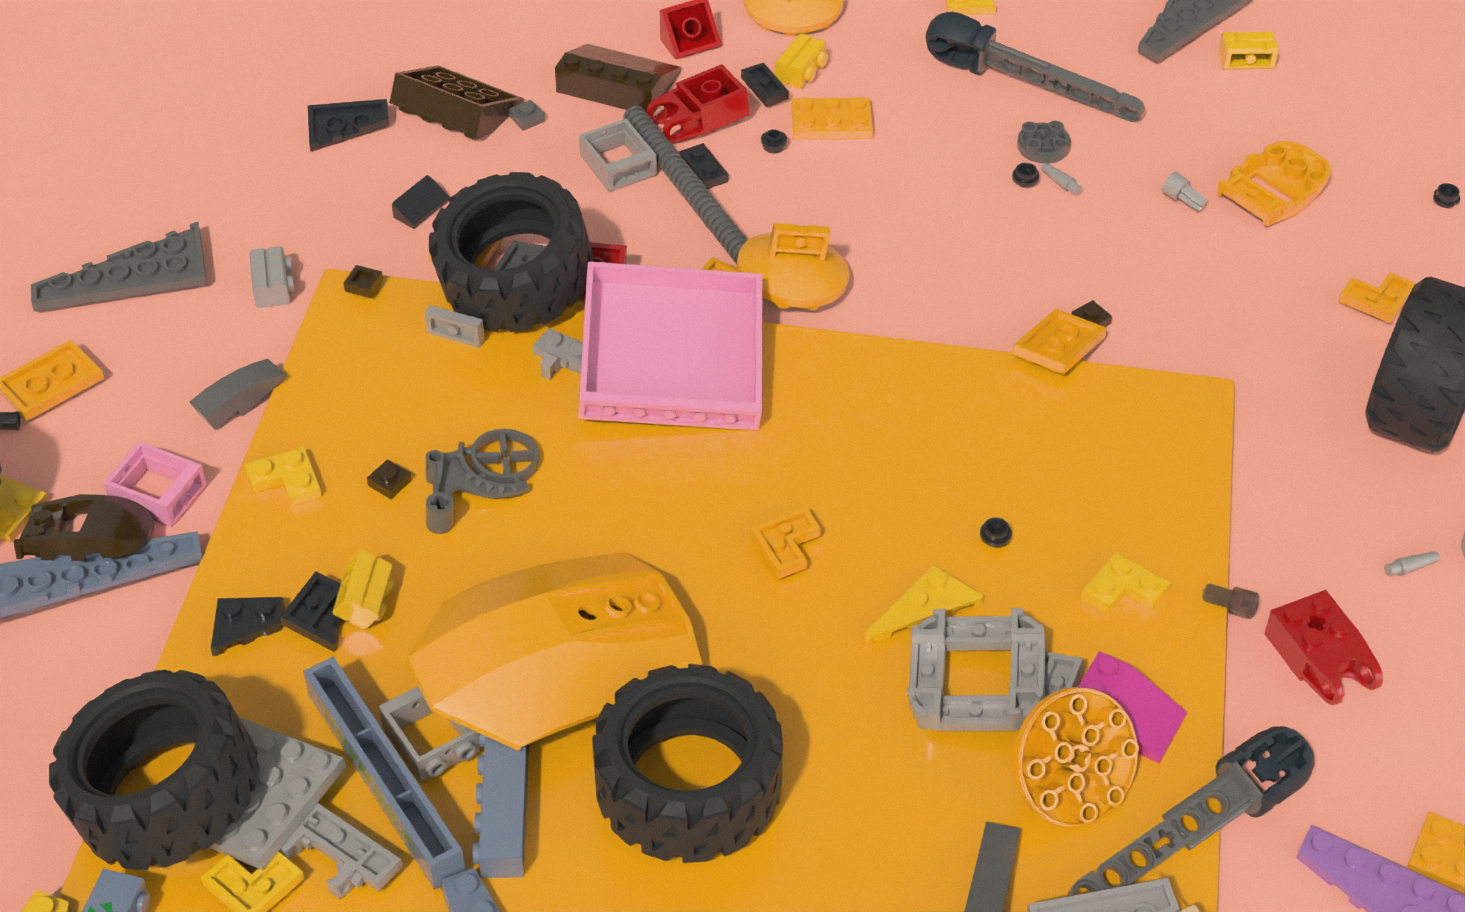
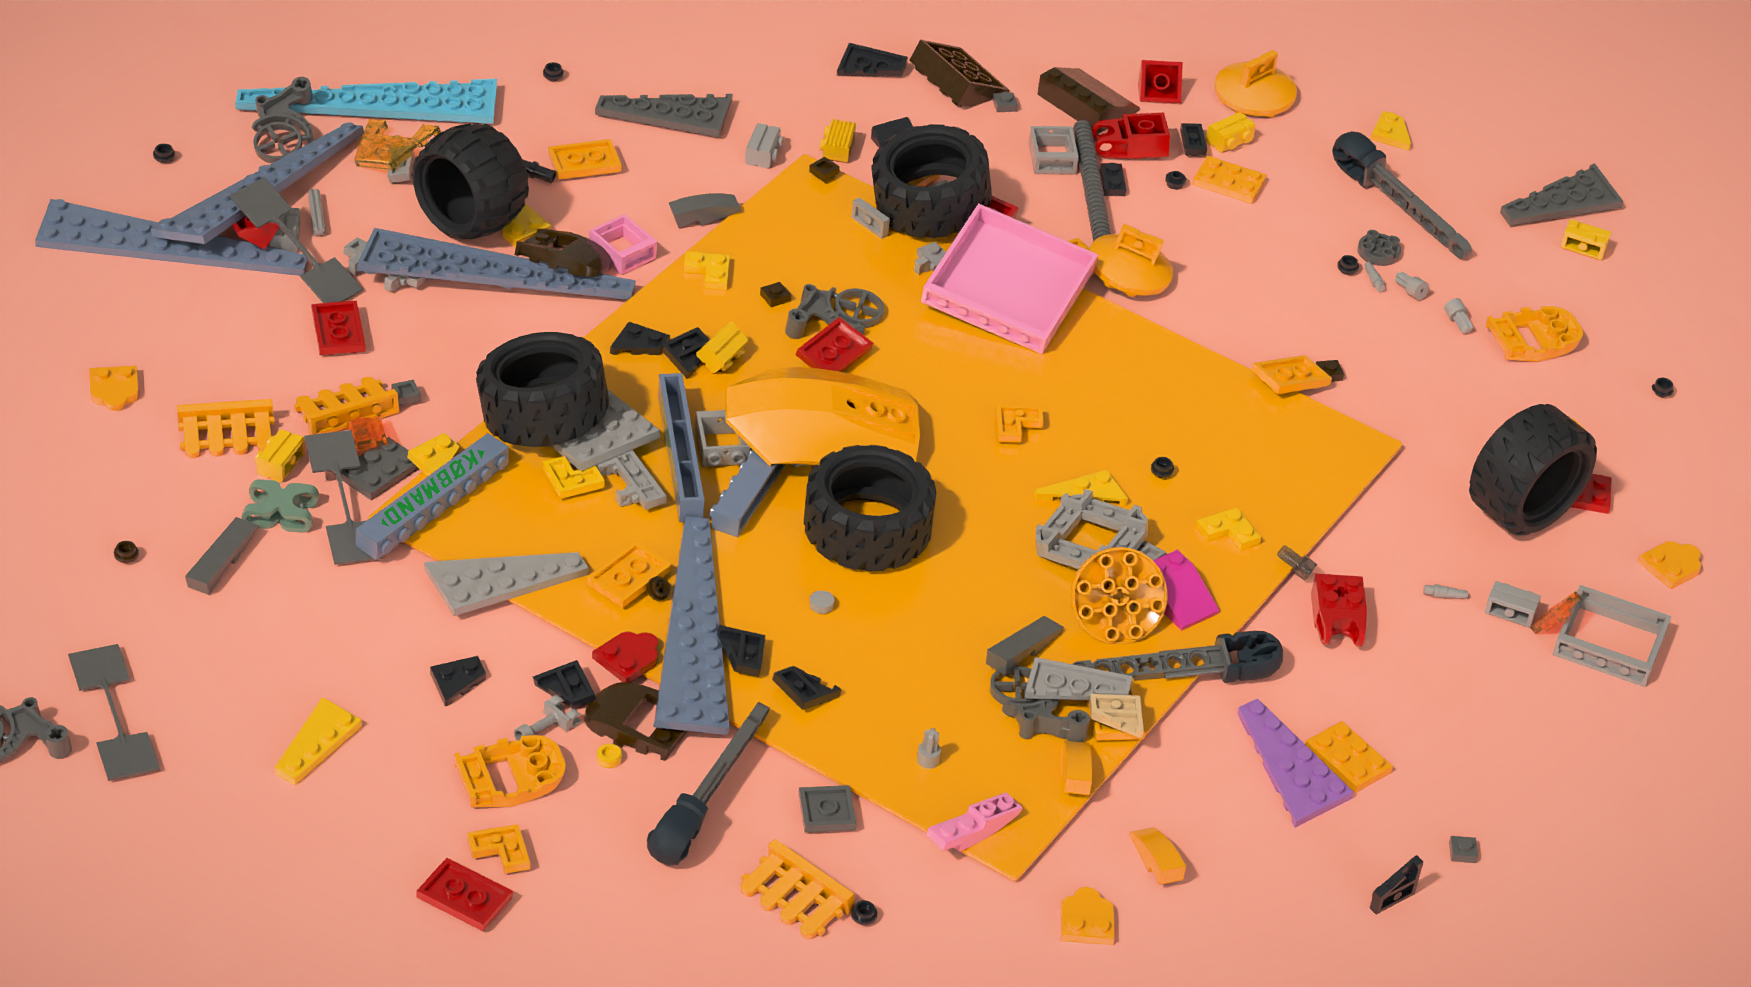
camera: 20 degrees right, 5 degrees down
(359, 235) = (838, 140): none -> yellow brick
(506, 530) = (834, 347): none -> red plate
(1114, 174) = (1413, 285): none -> light grey piece

